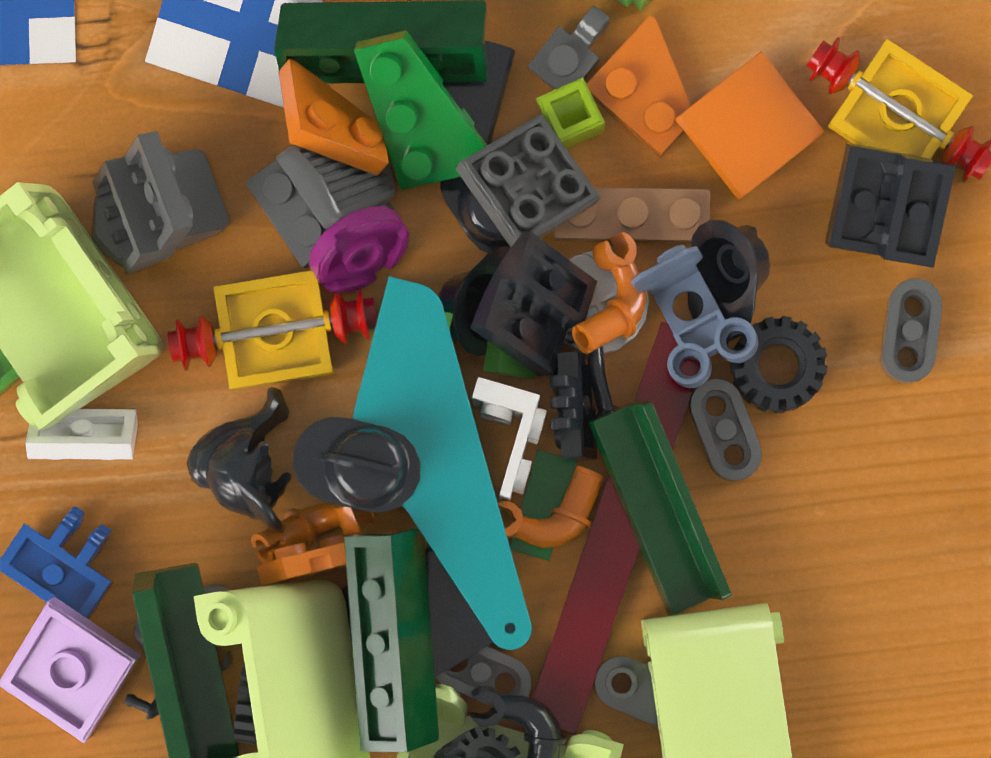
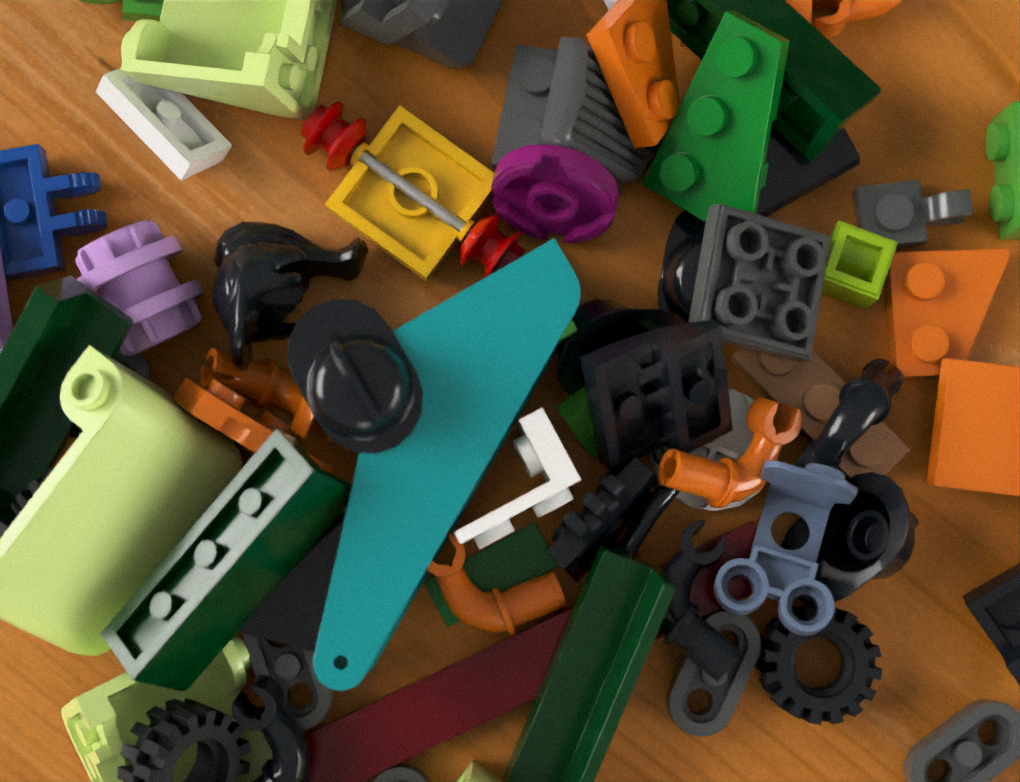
camera: 40 degrees right, 0 degrees up
(165, 539) = (136, 277): none -> lavender piece
(655, 192) = (861, 404): none -> black piece
(676, 419) = (681, 622): none -> black piece

